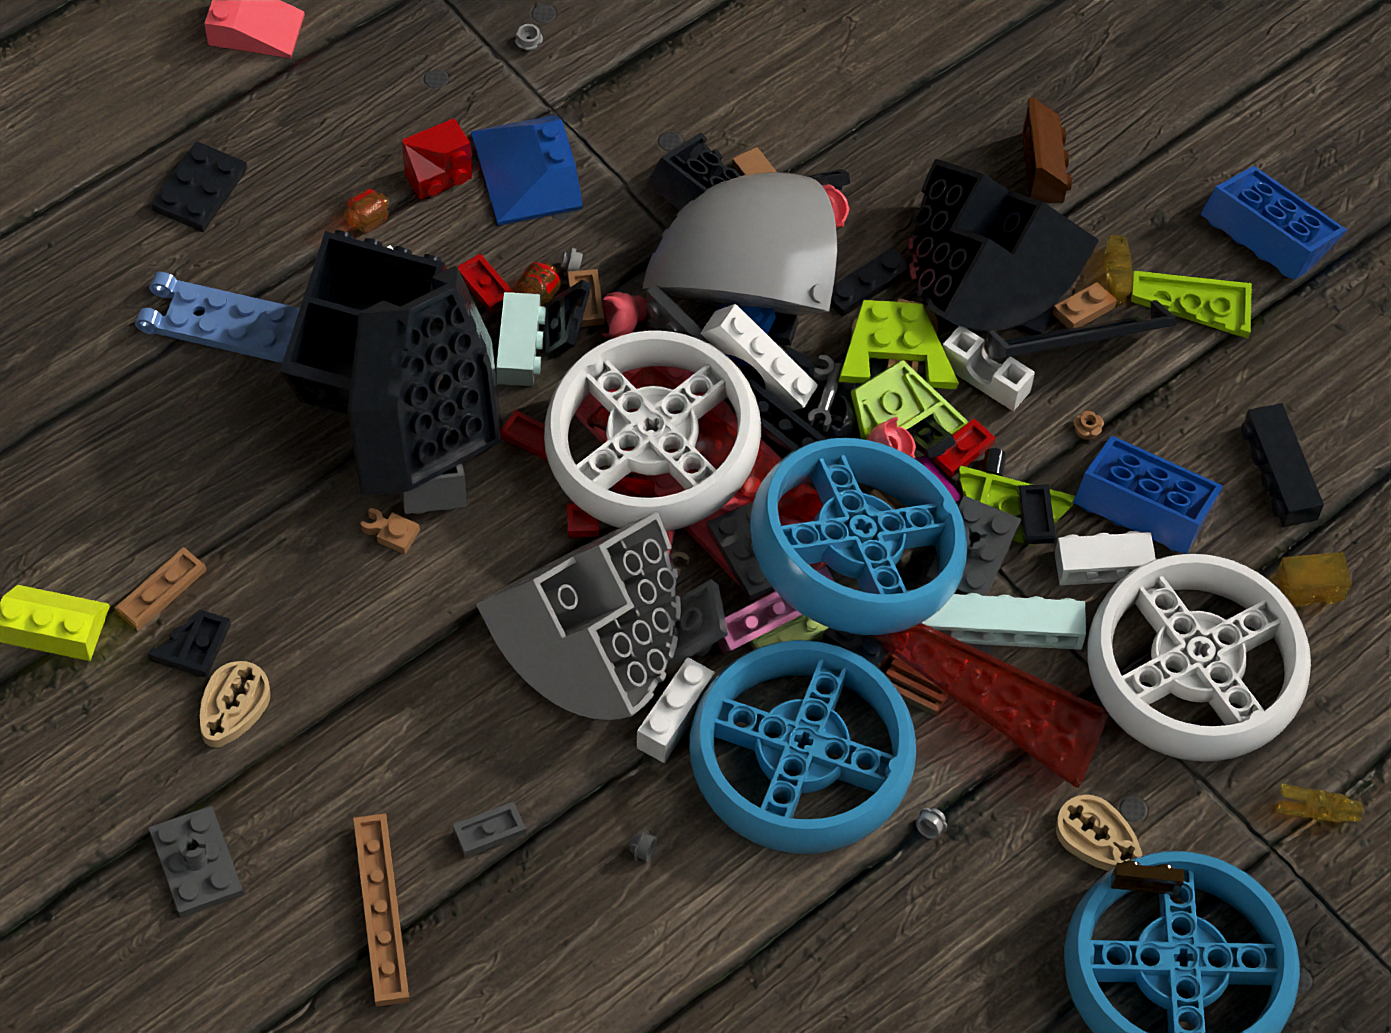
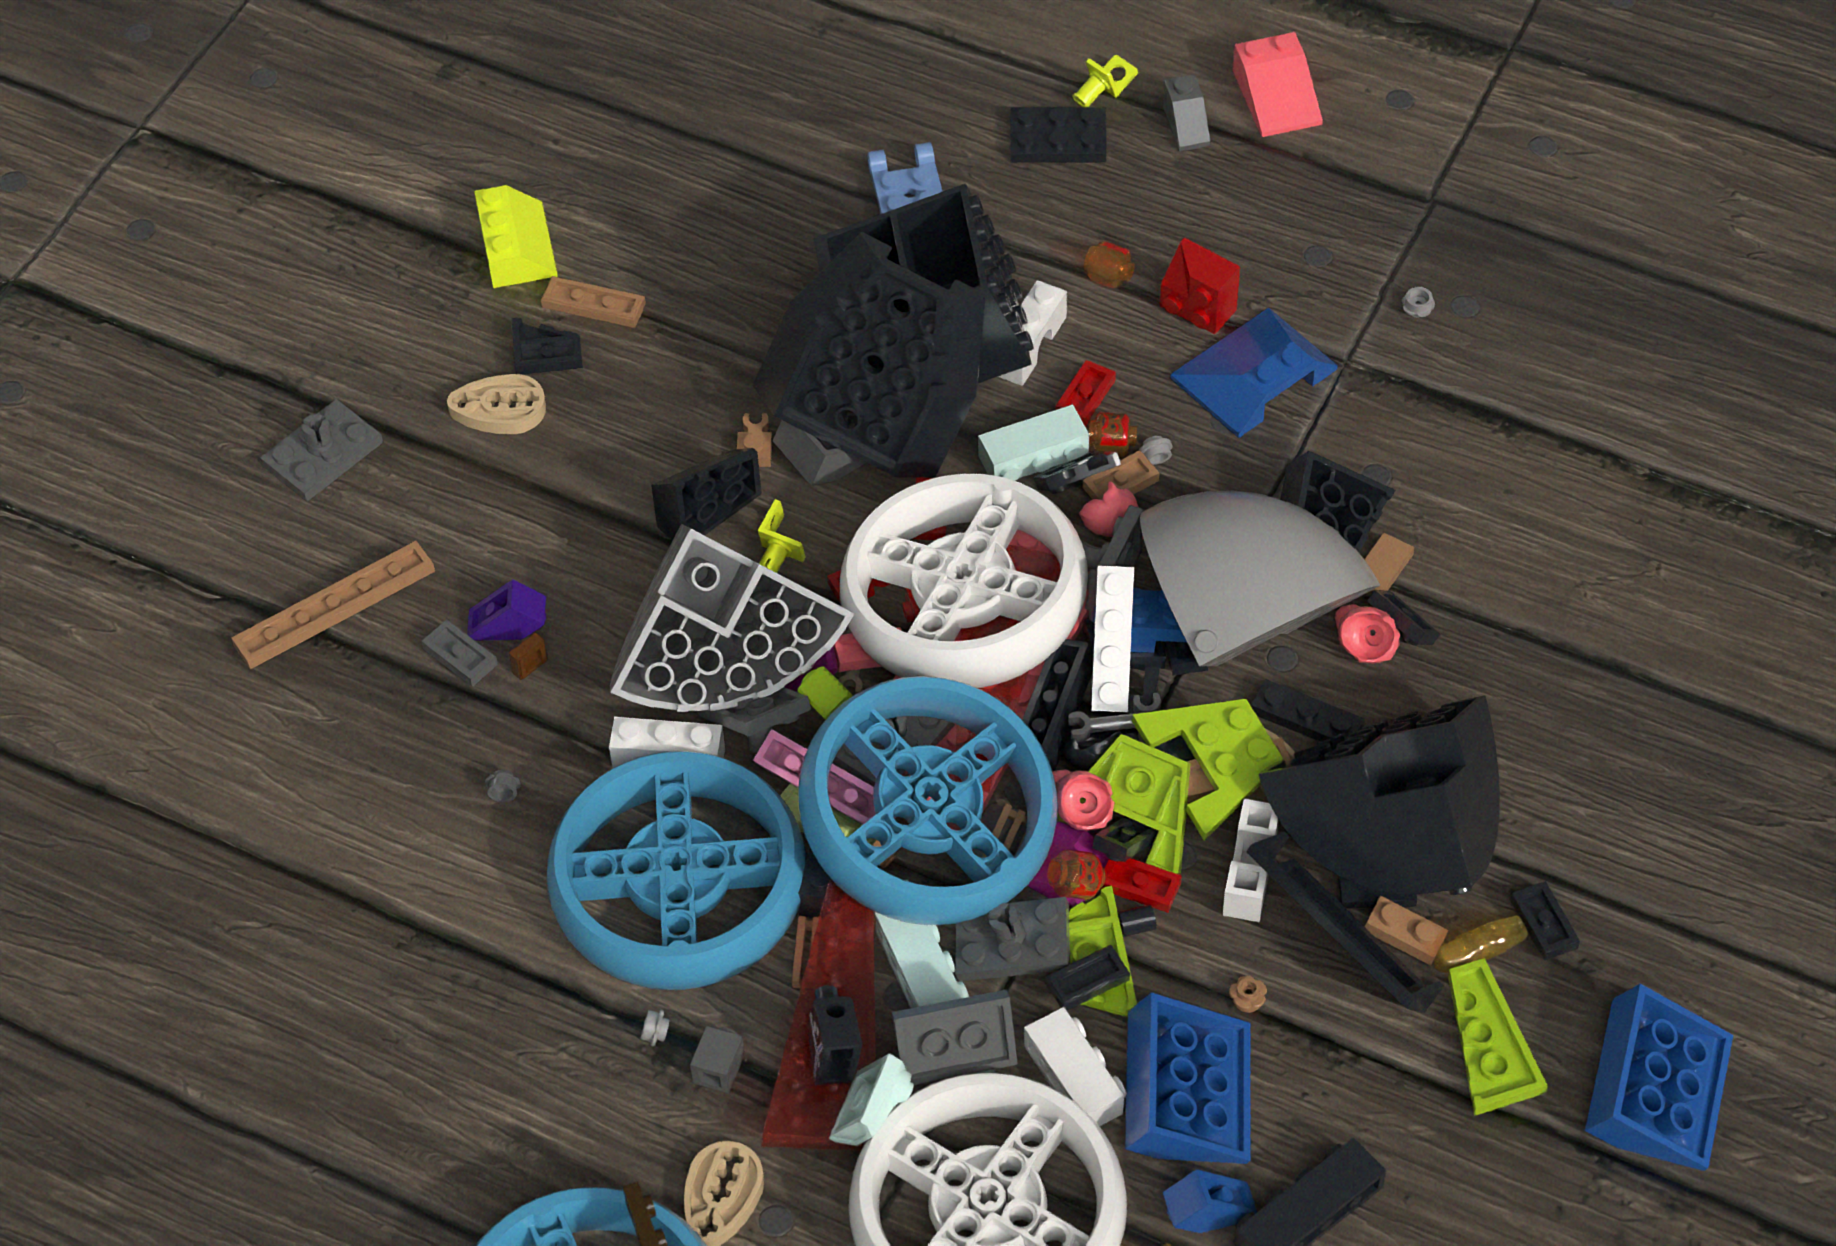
camera: 70 degrees right, 5 degrees down
(167, 129) = (1102, 80): none -> neon yellow bracket
(241, 90) = (1186, 112): none -> slope
(438, 579) = (707, 492): none -> black wedge
(471, 778) = (507, 613): none -> dark purple slope
(514, 554) = (777, 545): none -> neon yellow bracket
(525, 777) = (528, 656): none -> reddish brown tile
(702, 568) = (823, 691): none -> lime brick
(953, 475) = (1076, 874): none -> clear orange head
(984, 788) = (717, 1059): none -> dark grey brick
(1028, 689) = (833, 1037): none -> black torso
(1044, 154) = (1585, 806): reddish brown slope -> none
(1069, 610) = (956, 1037): none -> dark grey plate
(1091, 691) = (871, 1099): none -> light aqua slope
(1117, 221) = (1545, 920): none -> black plate
(1252, 524) = (1208, 1202): none -> blue slope

